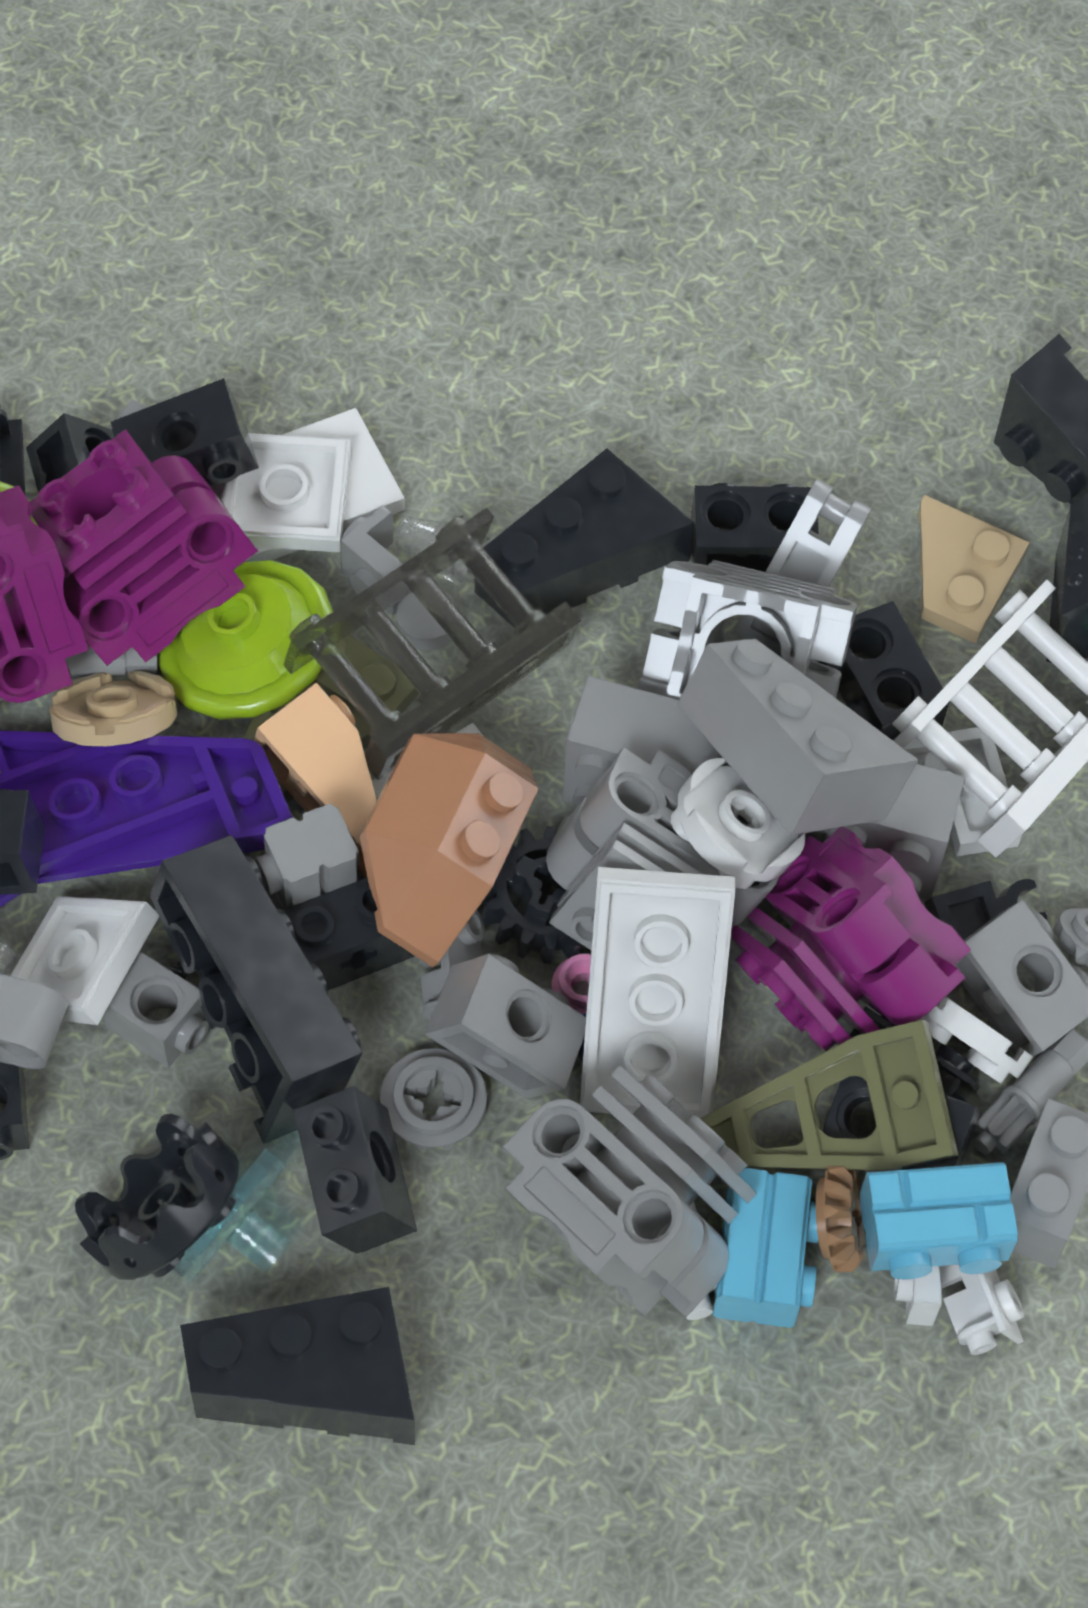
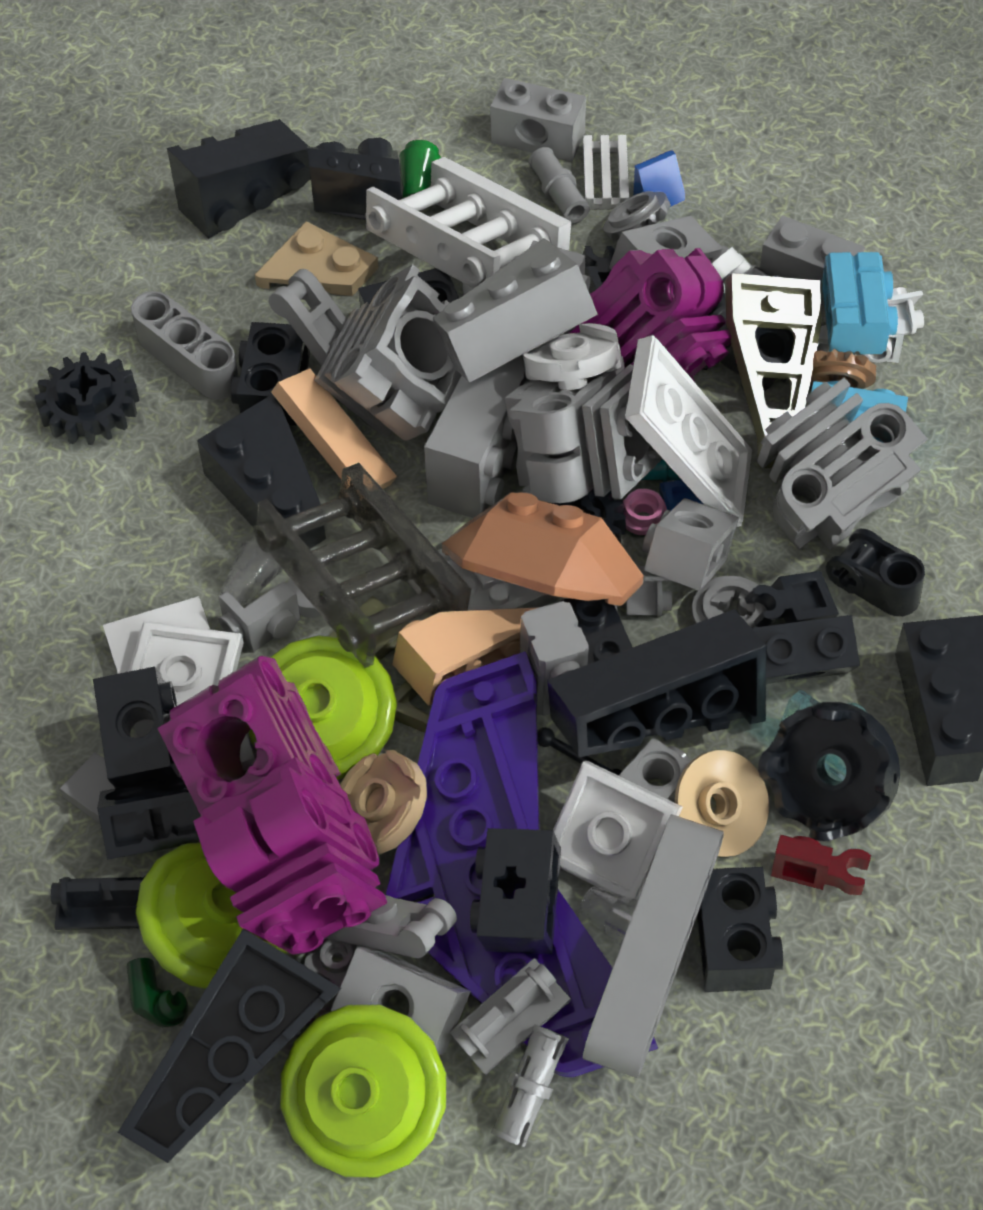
camera: 80 degrees left, 5 degrees down
(51, 1187) = (812, 864): none -> dark red plate
(101, 1090) = (738, 794): none -> tan dish
(446, 1177) = (794, 598): none -> black plate
(511, 1271) = (878, 573): none -> black piece
(623, 627) = (330, 427): none -> light nougat tile
(683, 340) = (87, 398): none -> black gear
(795, 408) = (184, 344): none -> light grey beam

